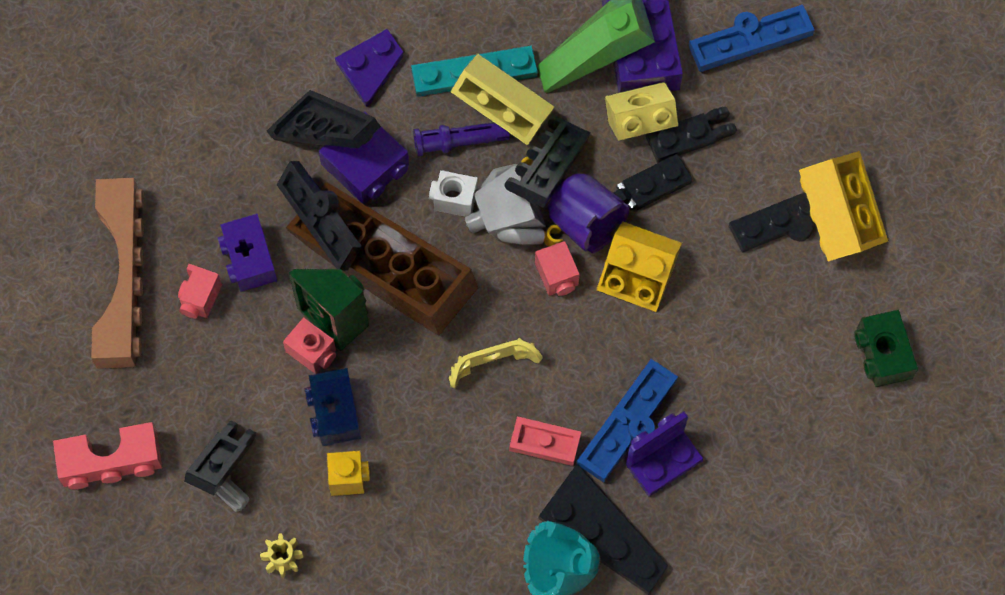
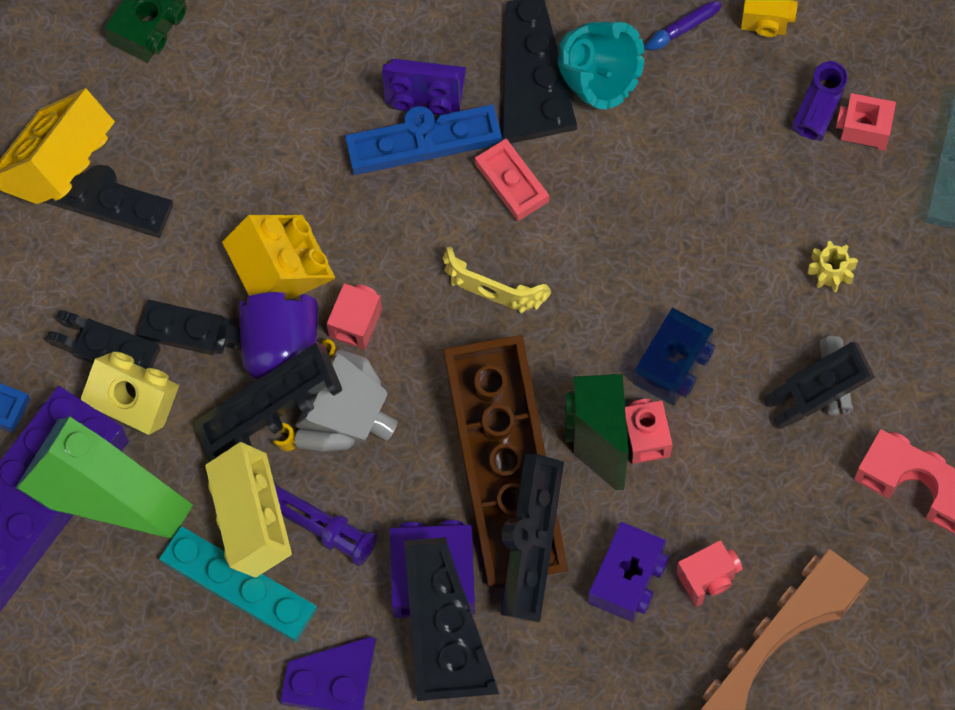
camera: 135 degrees left, 0 degrees up
(347, 473) = (714, 286): yellow brick -> none
(460, 205) = (377, 450): white brick -> none

